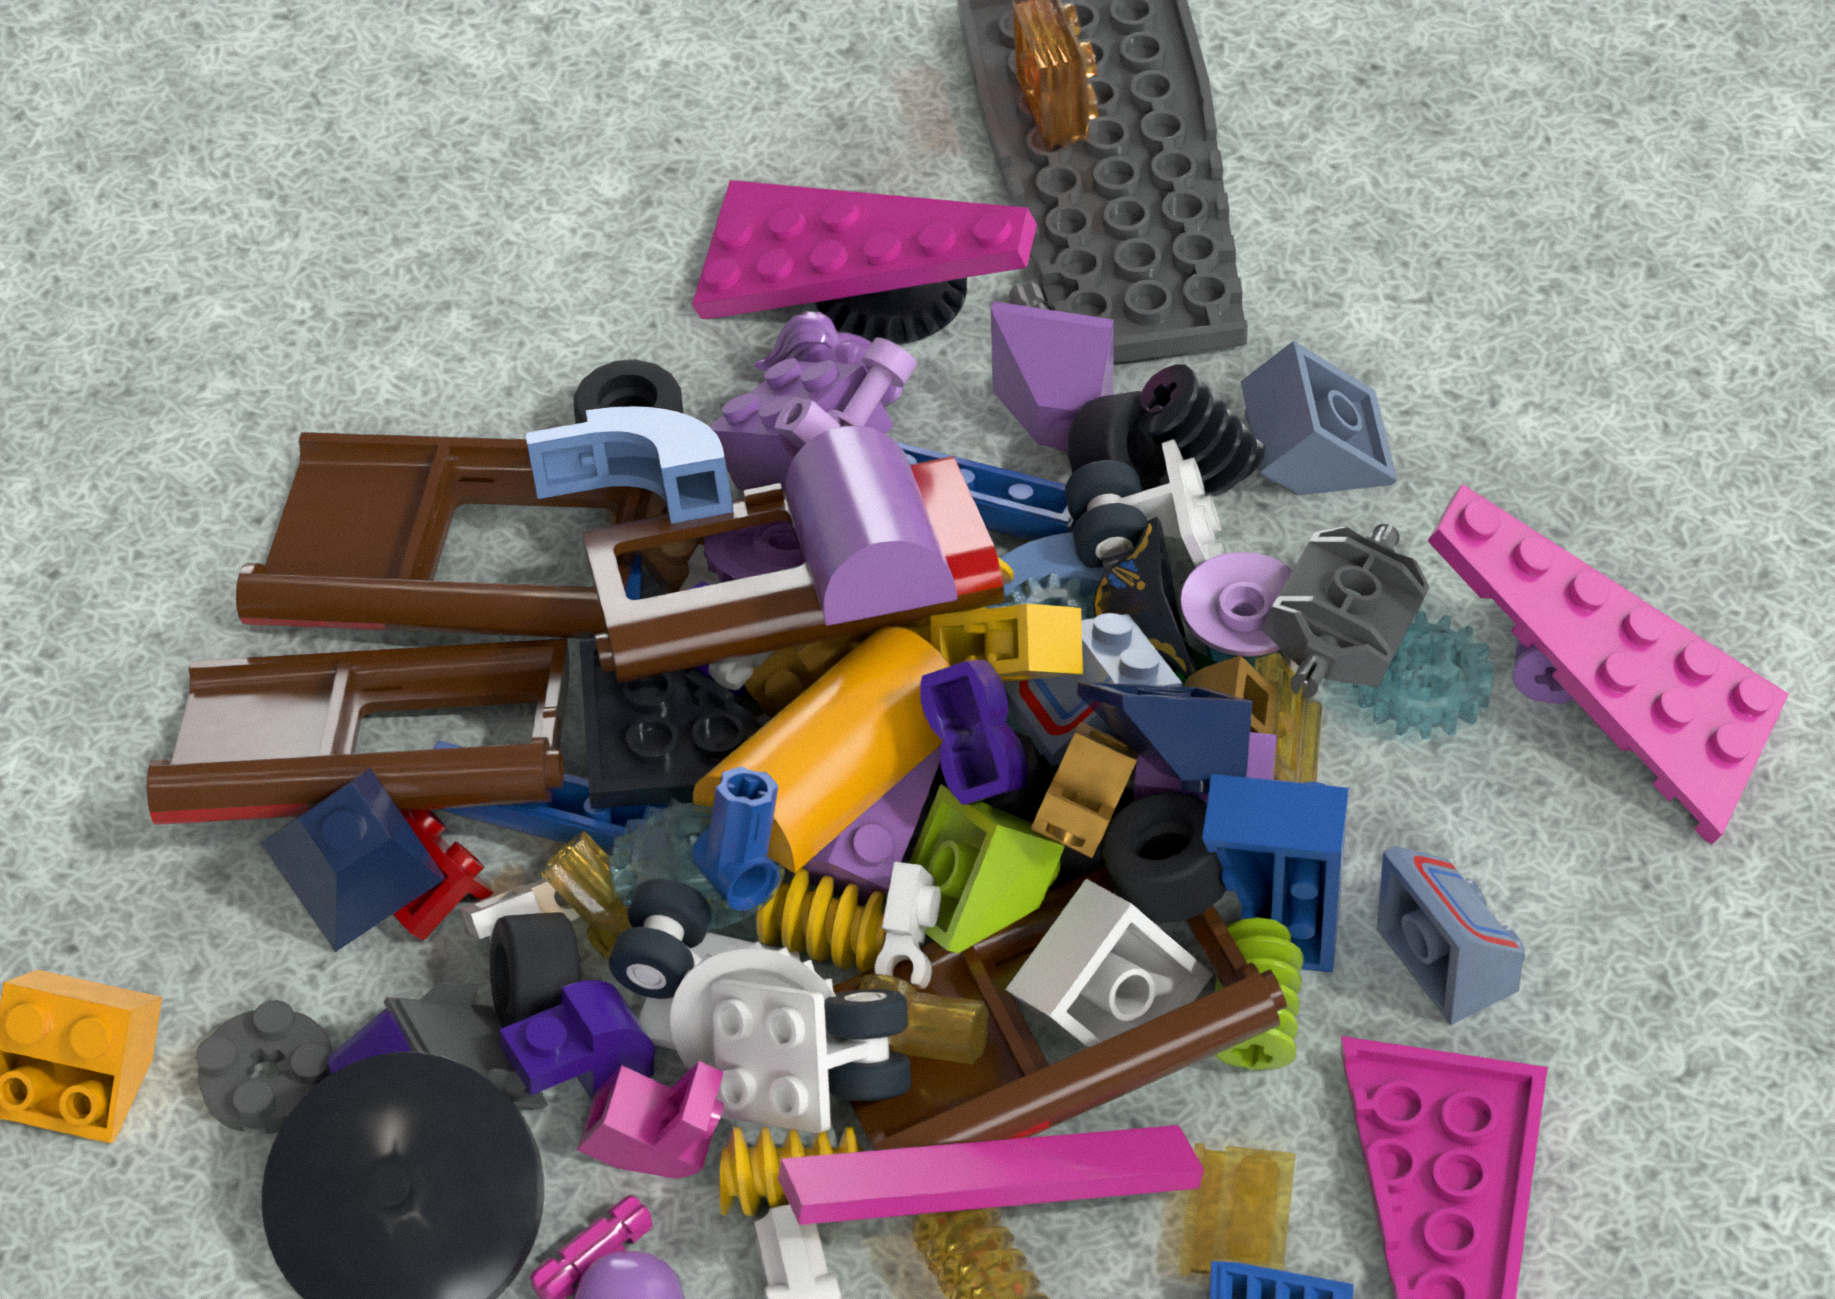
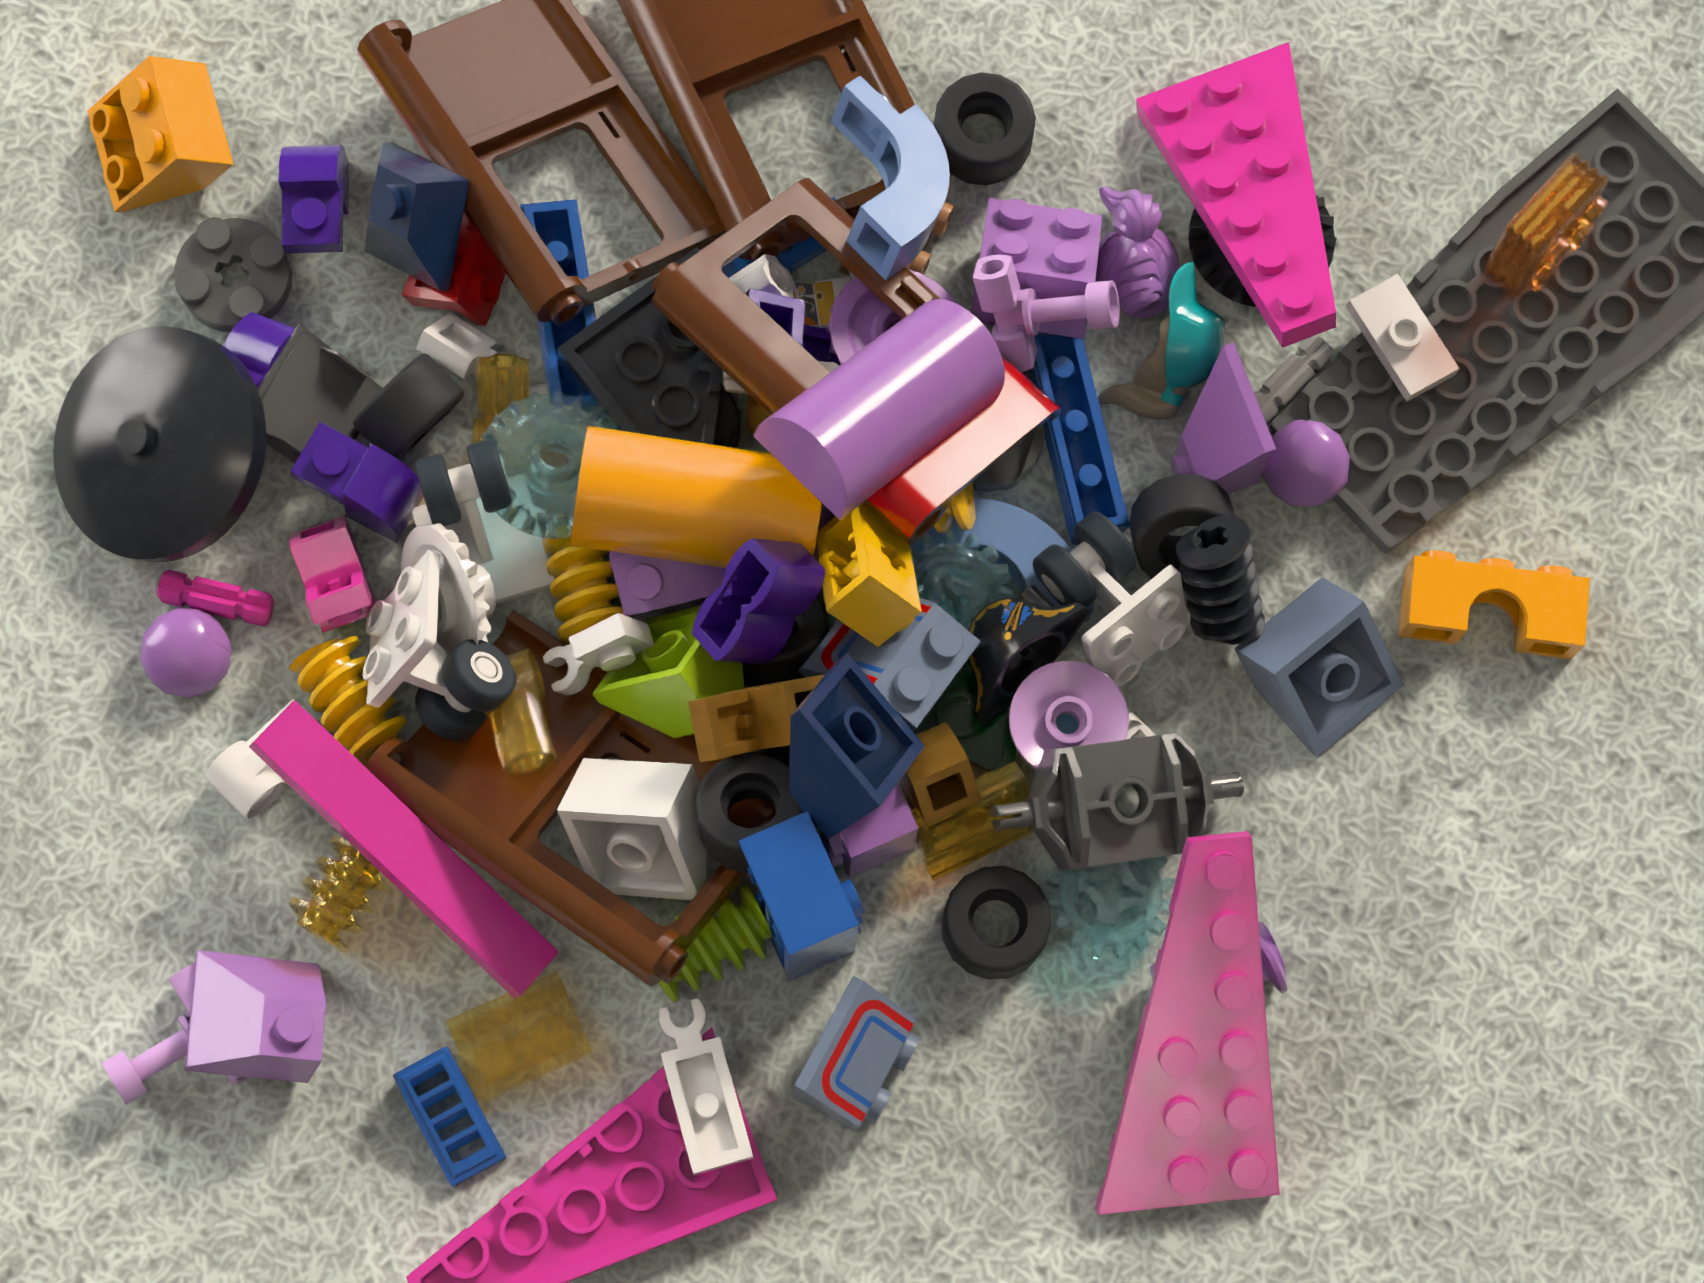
camera: 50 degrees right, 25 degrees up
(253, 940) = (313, 197): none -> dark purple brick
(737, 842) = (542, 495): blue piece -> none
(958, 376) = (1182, 358): none -> teal hair
(1076, 222) = (1402, 337): none -> white plate
(1141, 337) = (1307, 464): none -> medium lavender hair
(1375, 257) = (1543, 604): none -> light orange arch
(1400, 739) = (1009, 887): none -> black tyre
(1404, 1059) = (704, 1095): none -> white plate

